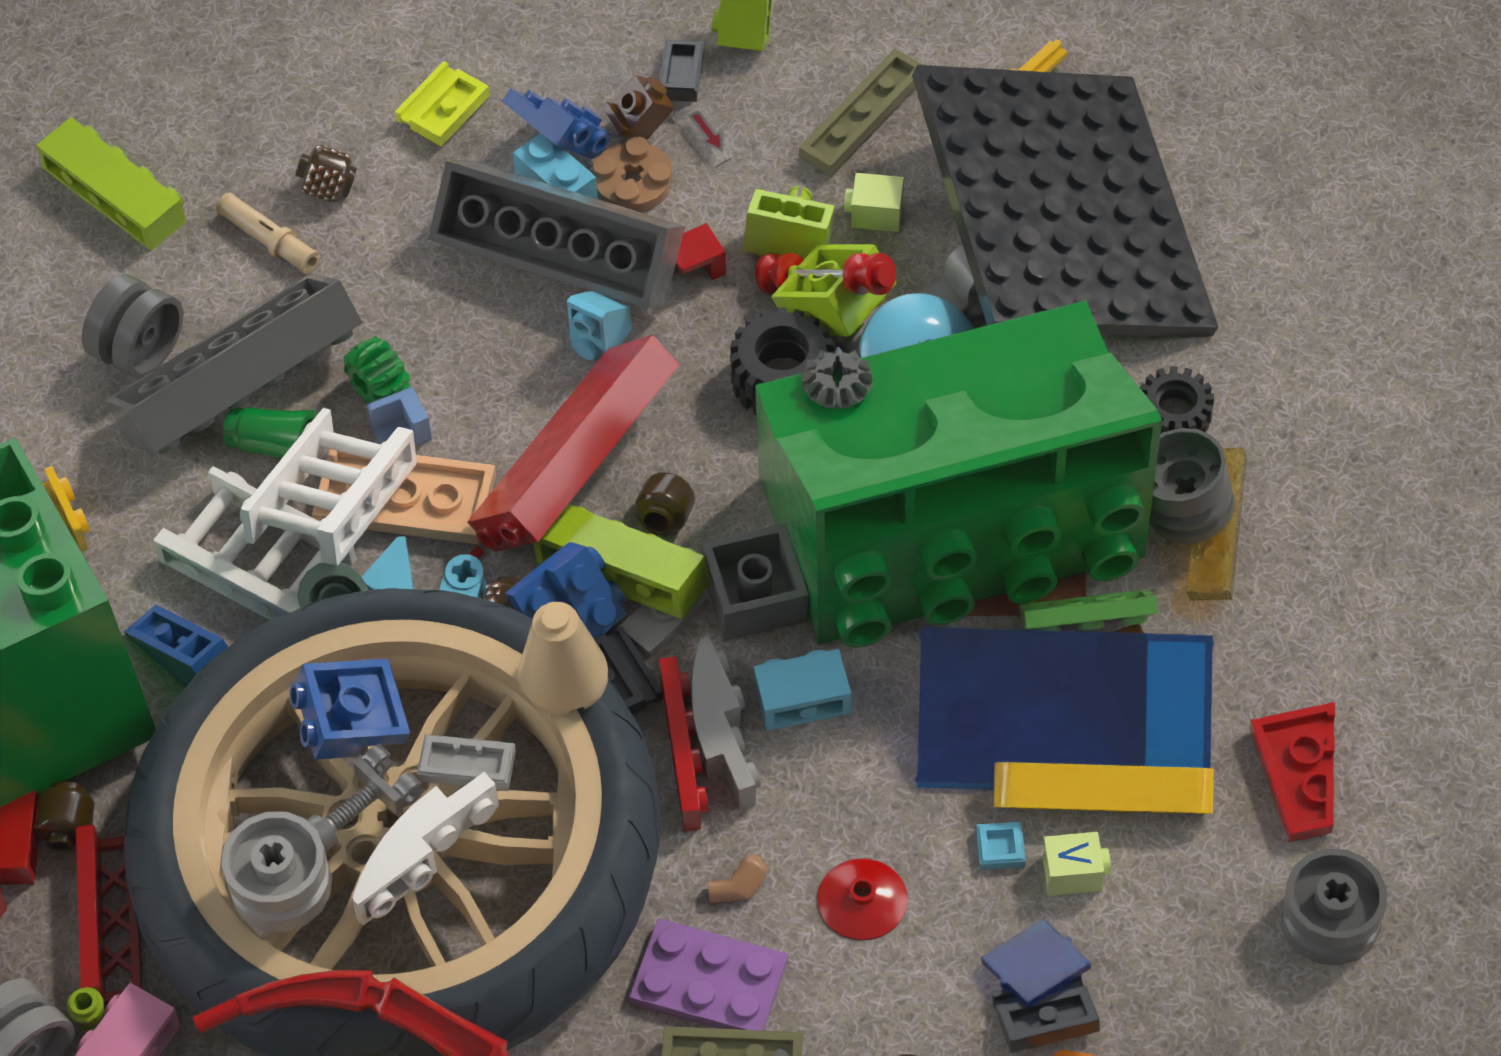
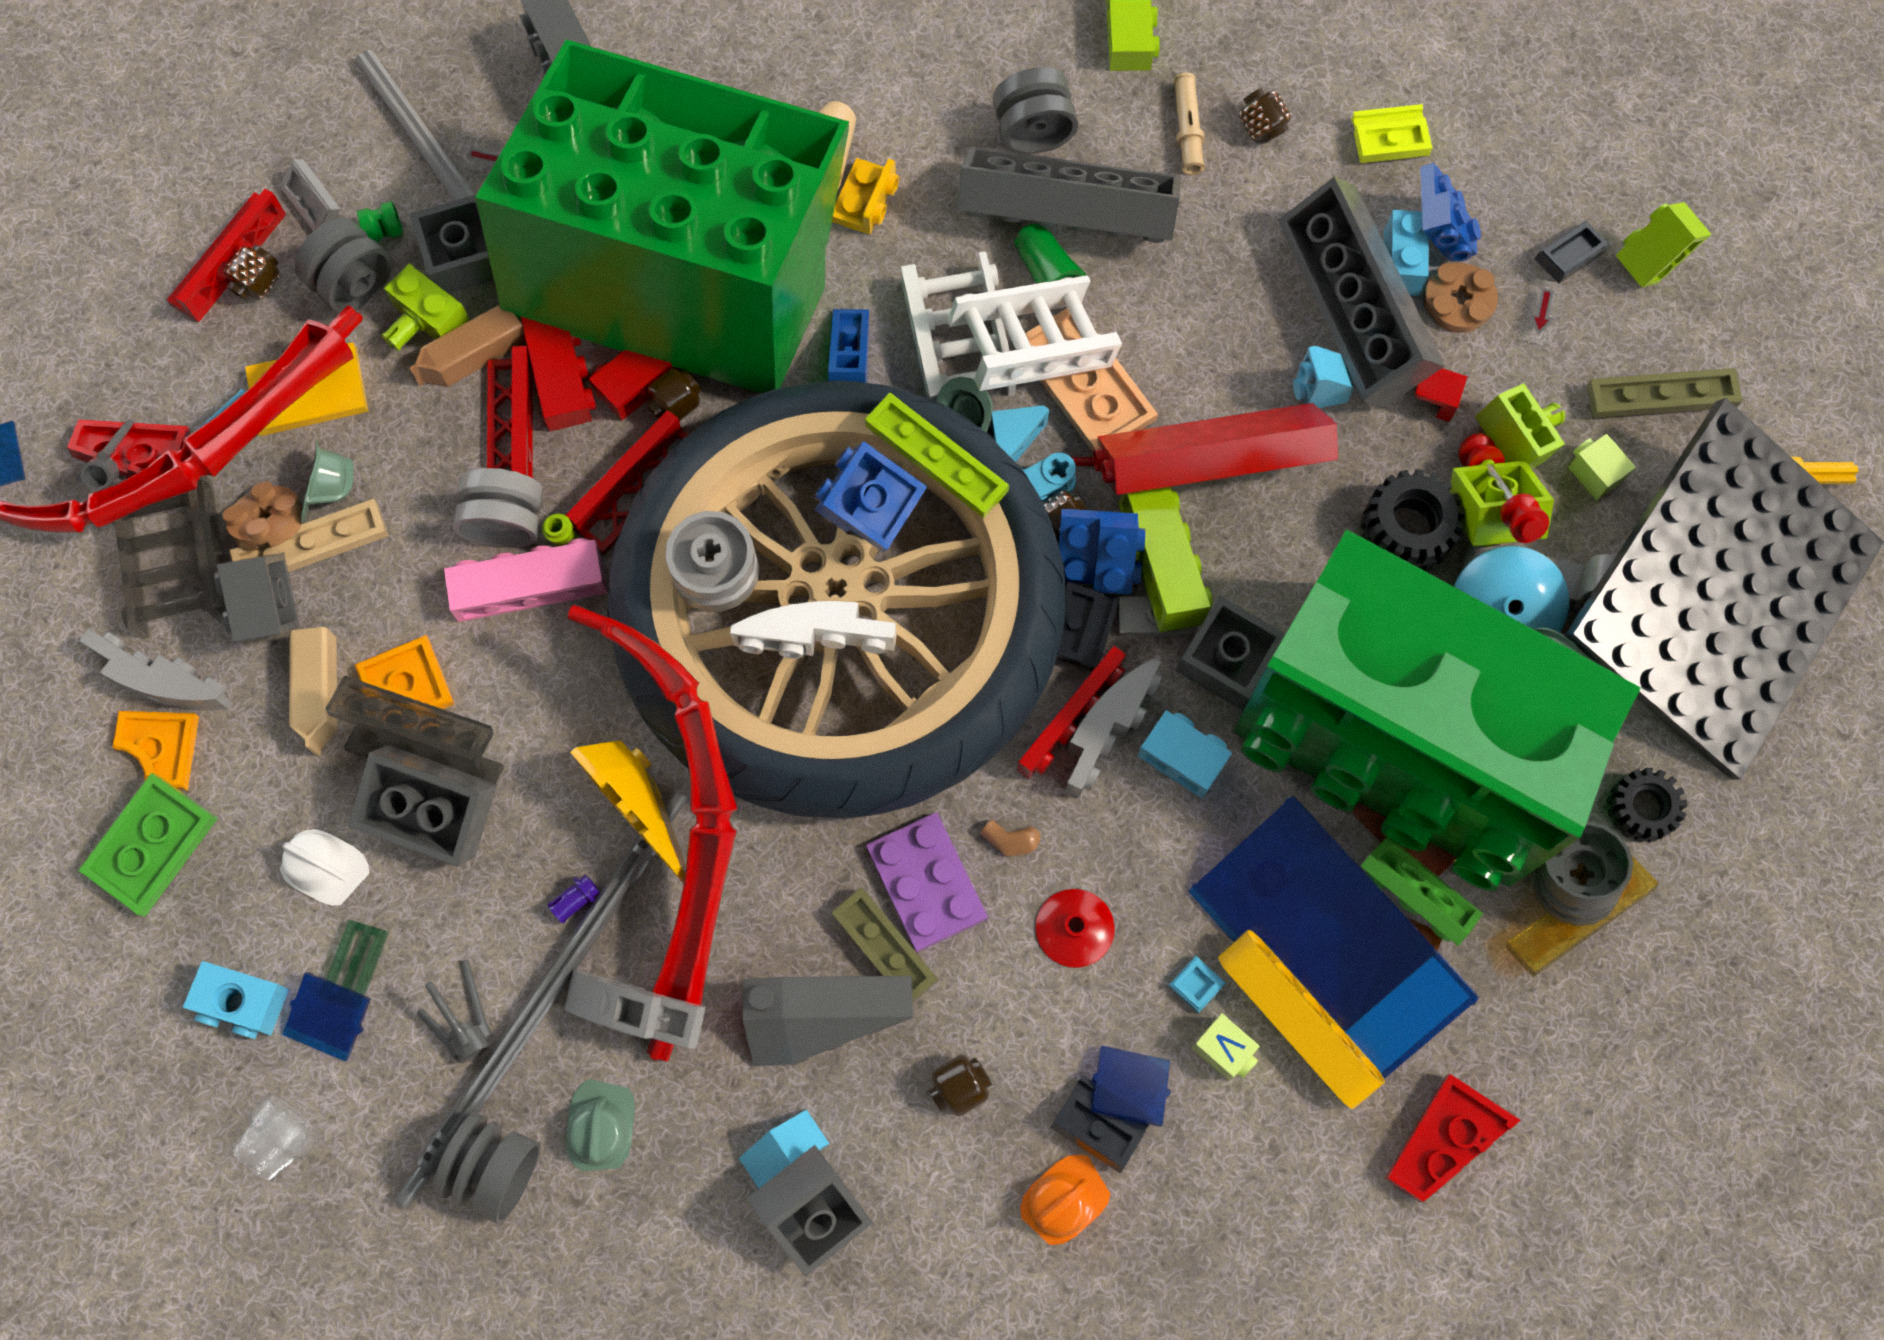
camera: 45 degrees right, 15 degrees up
(367, 630) = (936, 455): none -> lime plate
(368, 771) = (845, 547): flat silver bar -> none
(375, 370) = (1150, 282): green gear -> none
(402, 411) = (1134, 327): medium blue panel -> none
(463, 759) = (900, 603): light grey plate -> none
(561, 662) = (1024, 599): tan cone -> none
(639, 108) = (1512, 253): reddish brown brick -> none
(664, 503) = (1234, 543): dark brown head -> none
(853, 385) = (1403, 595): dark grey gear -> none
(1333, 906) = (1383, 1251): dark grey wheel -> none

